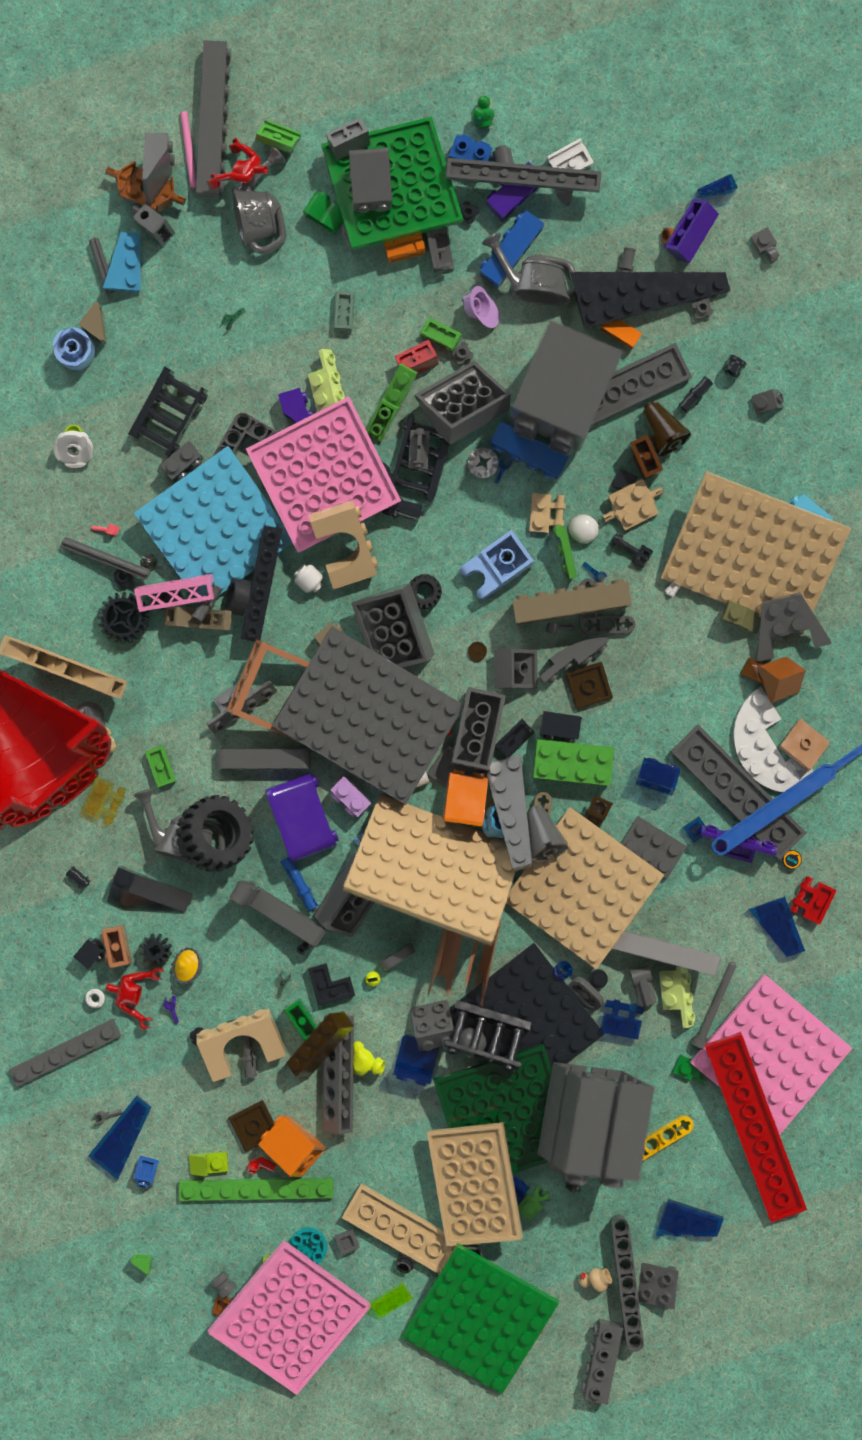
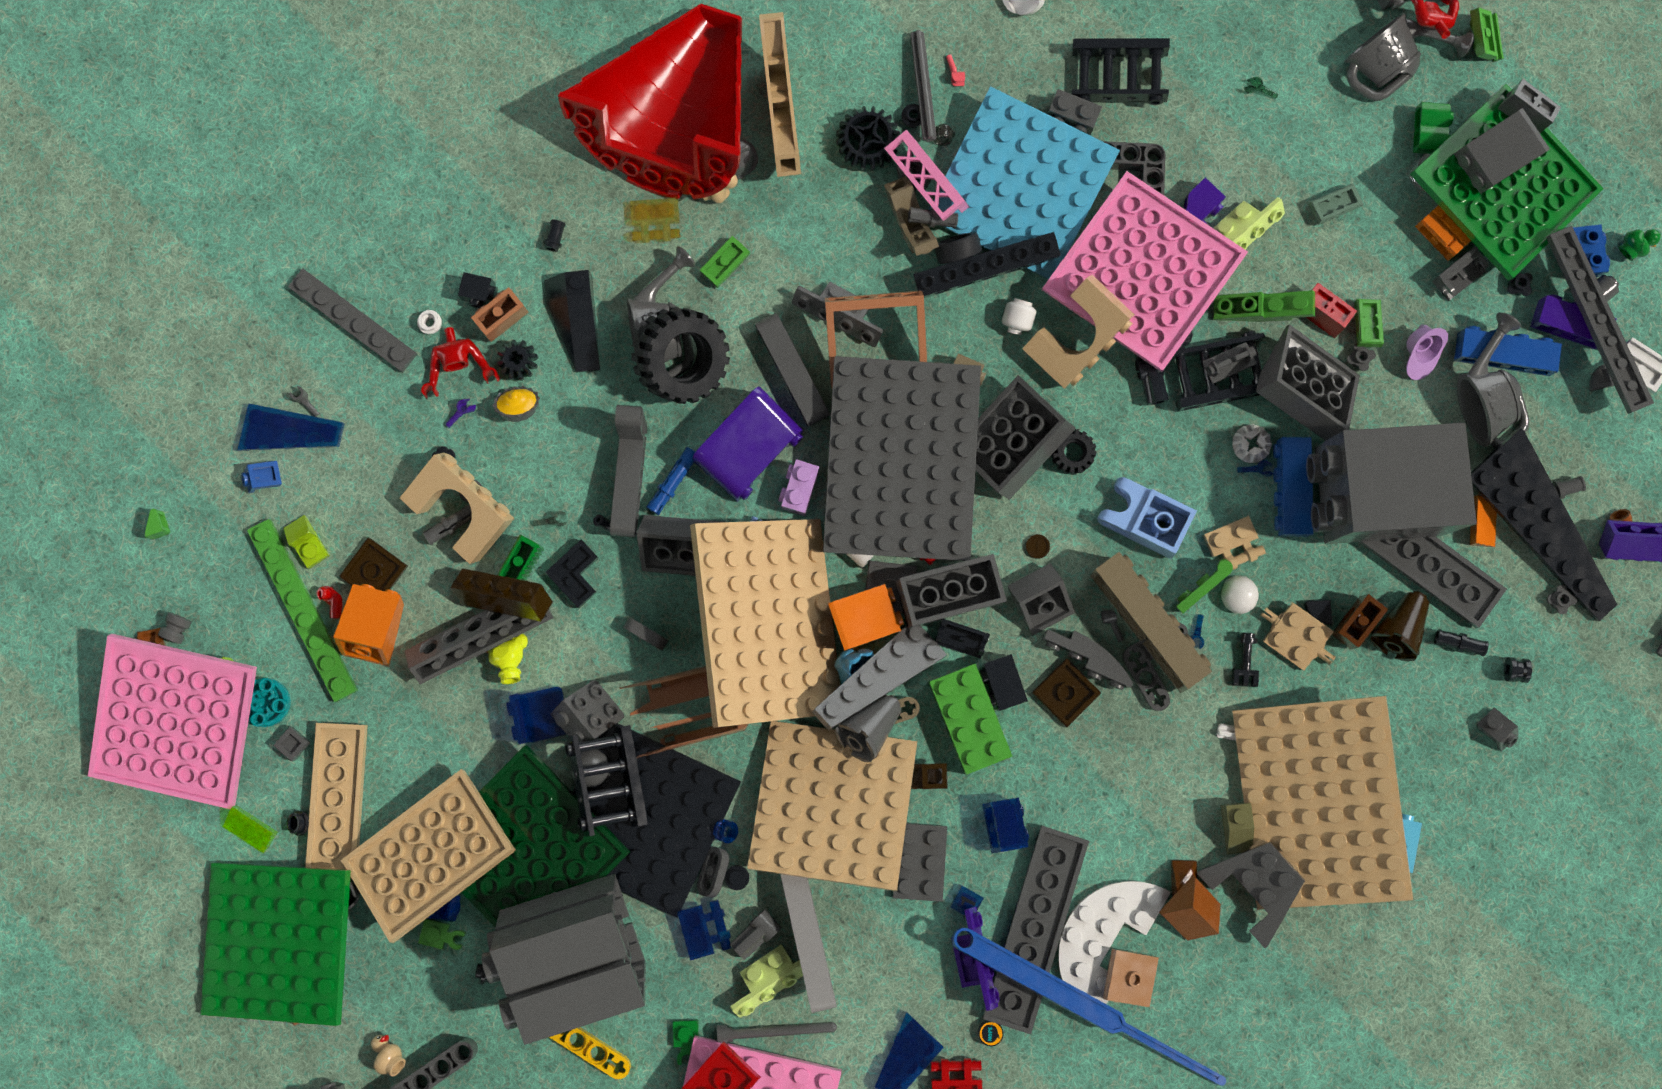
camera: 65 degrees right, 5 degrees down
(372, 974) = (610, 615): neon yellow hinge -> none

